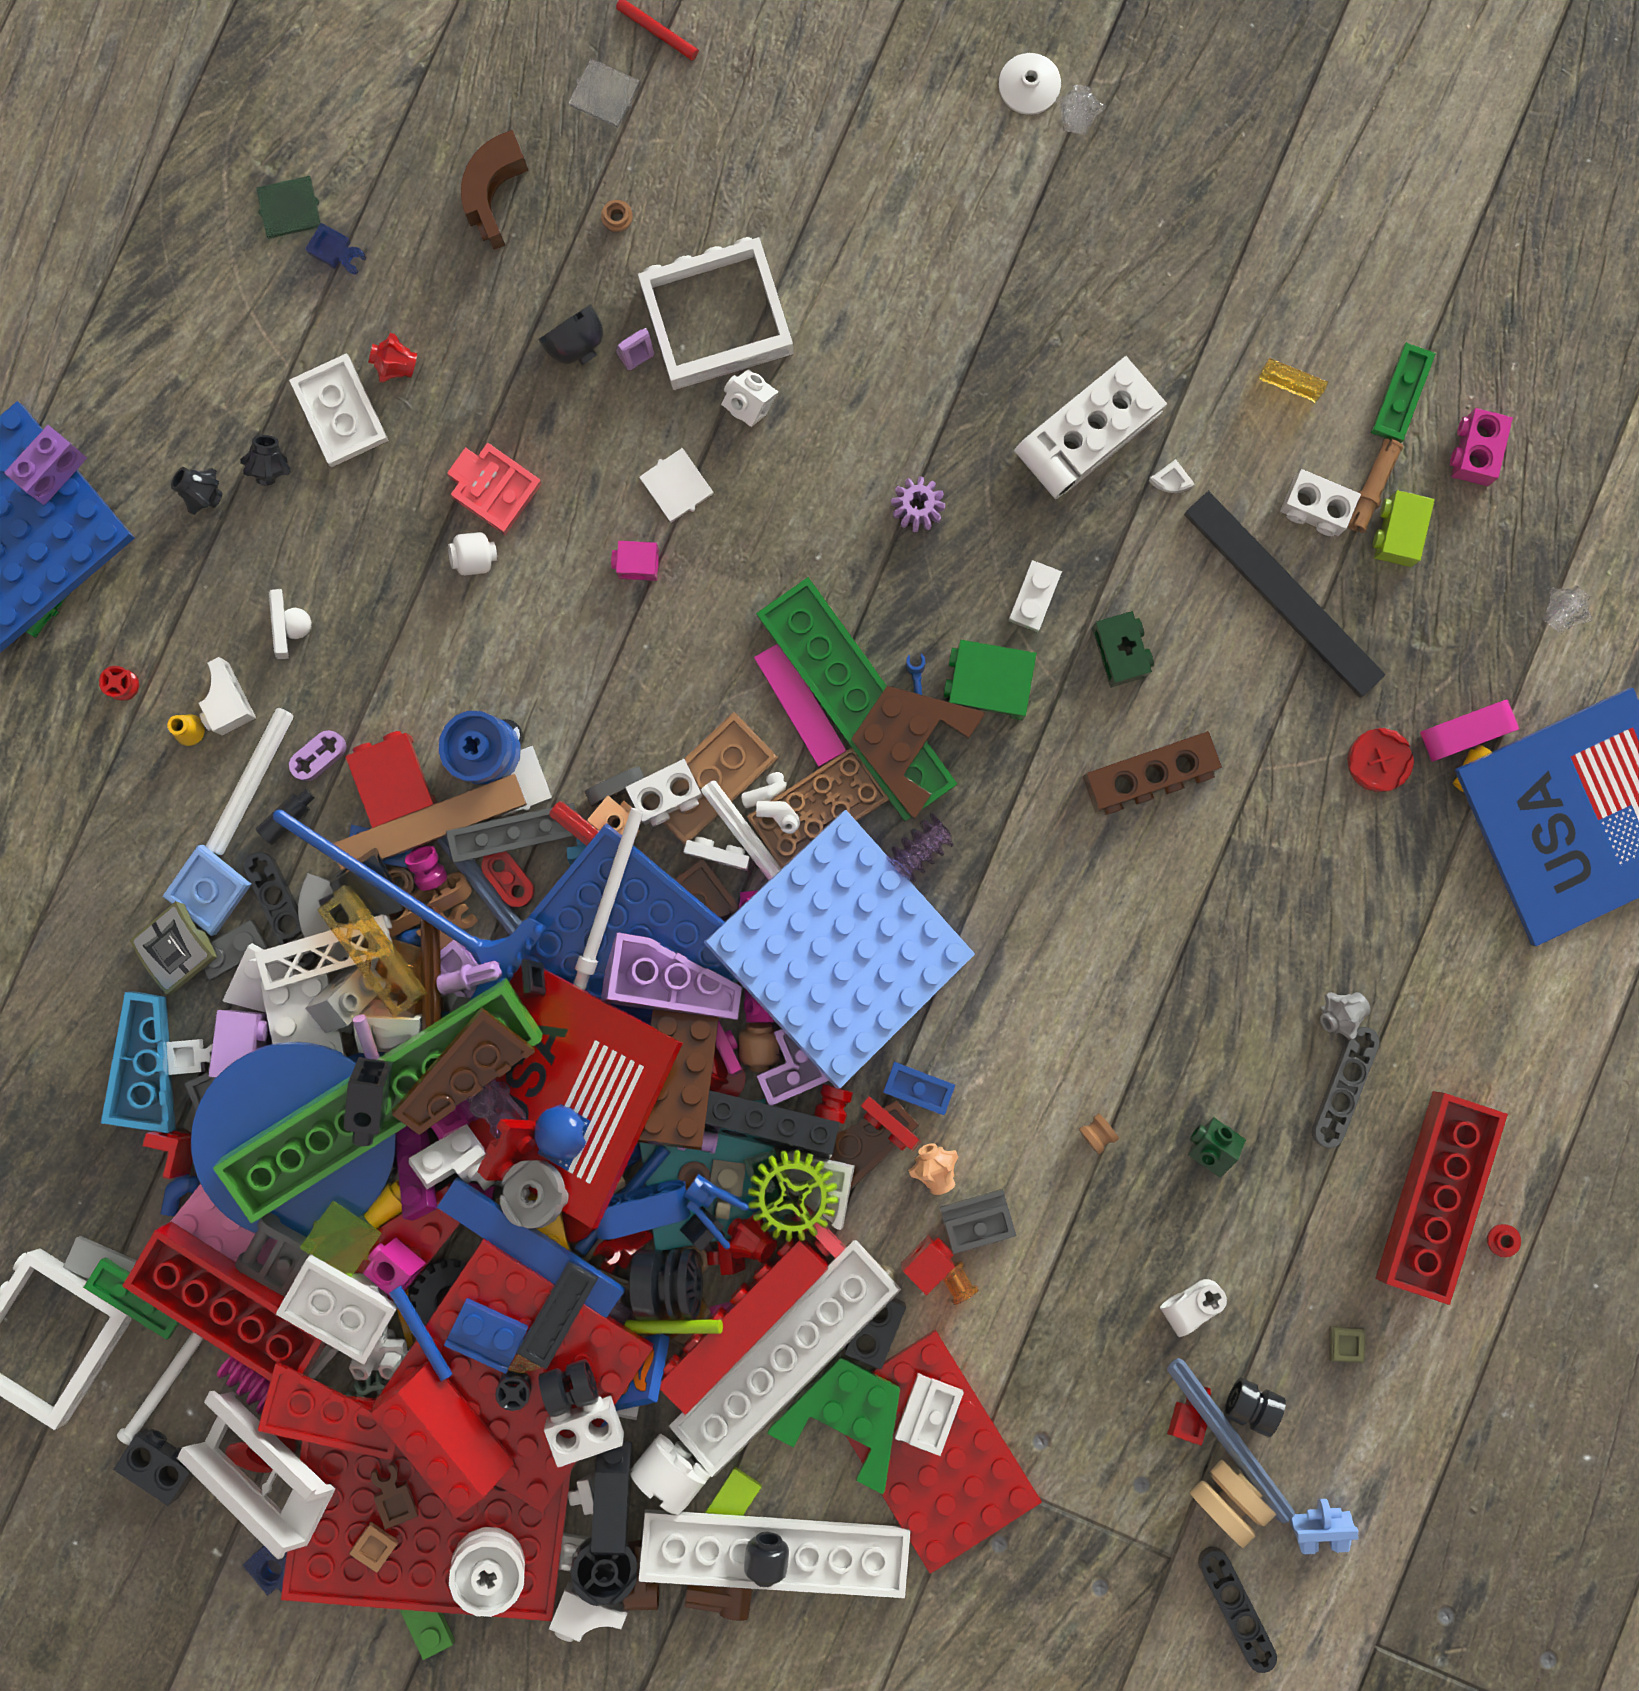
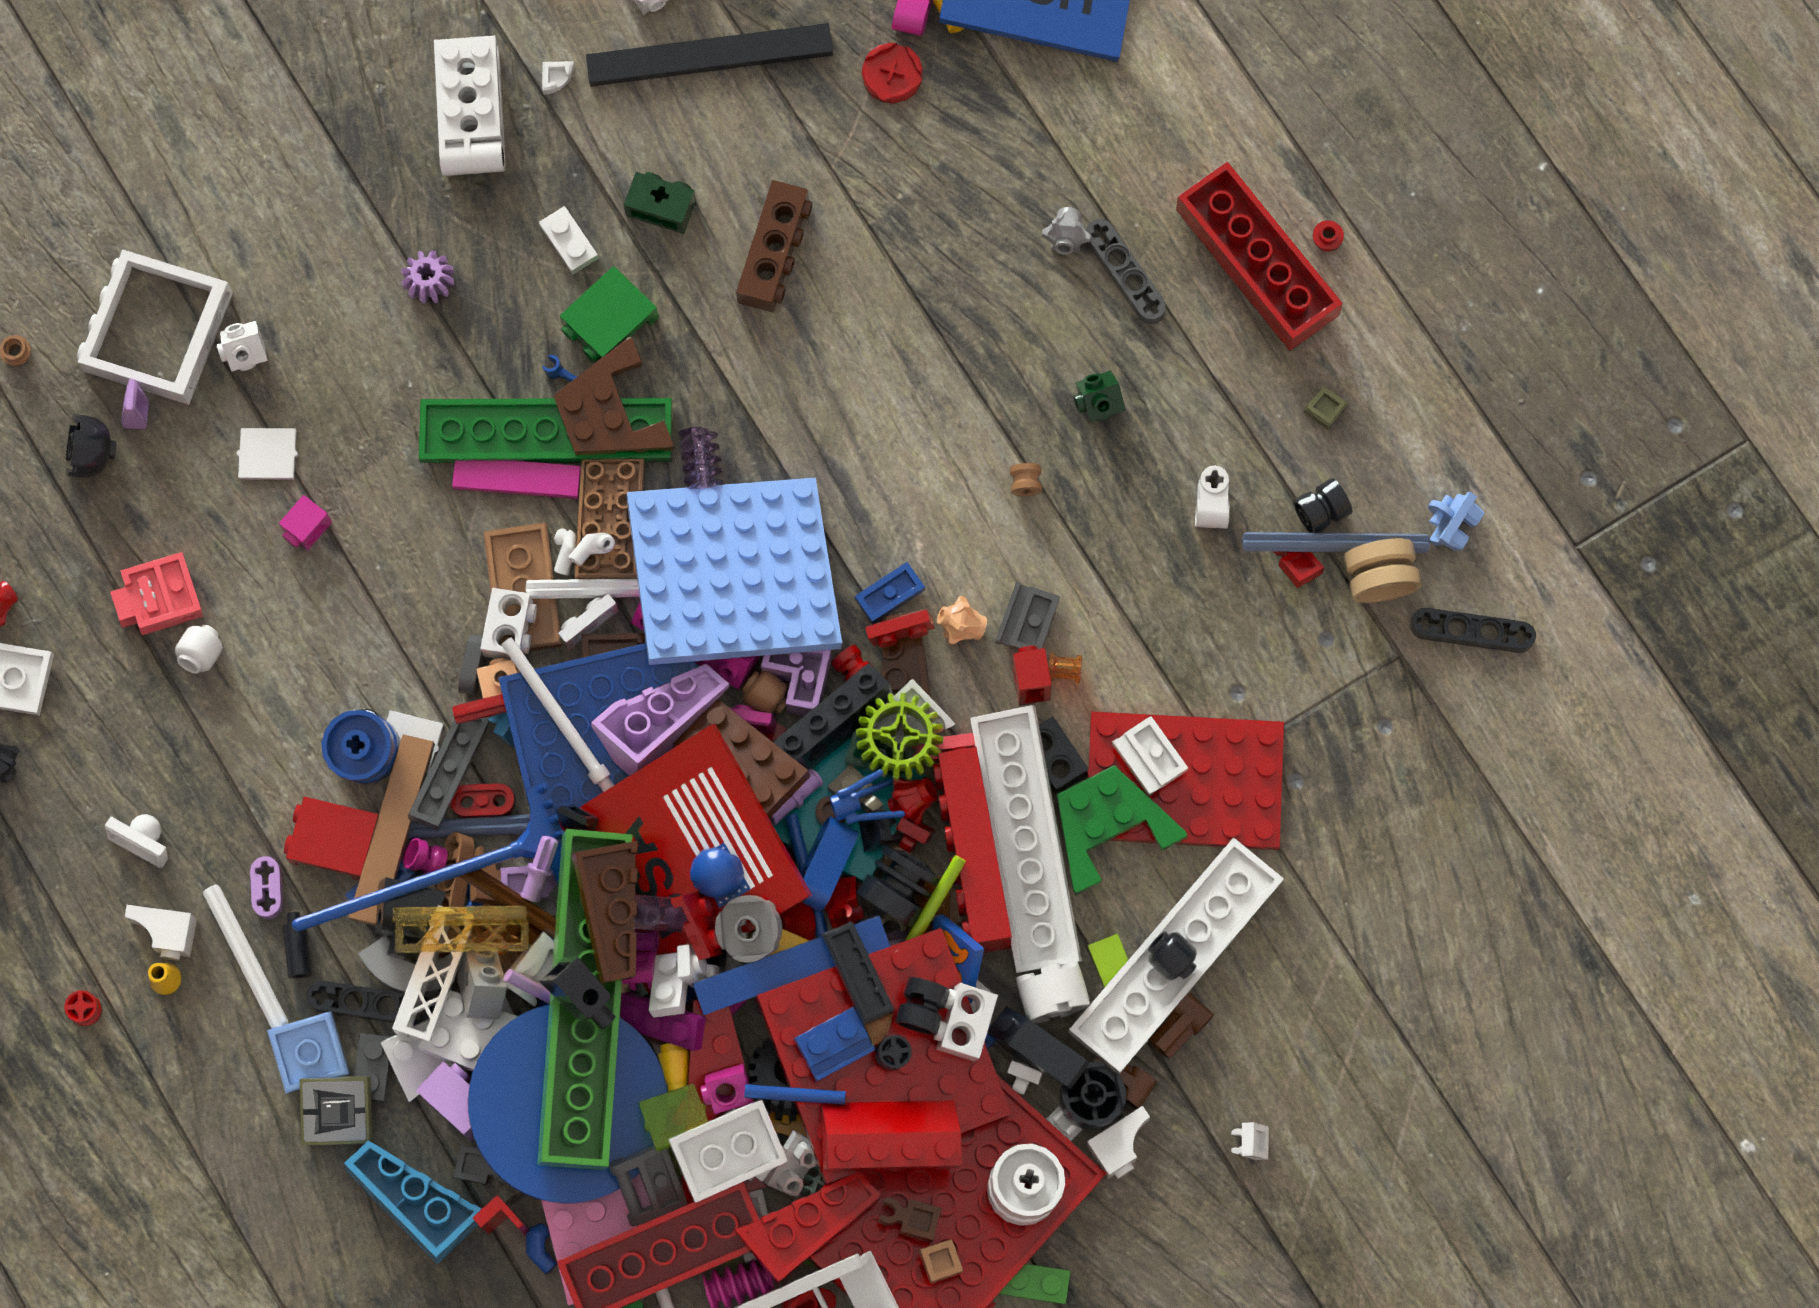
camera: 55 degrees left, 10 degrees down
(187, 1056) = (435, 1159): white plate -> none

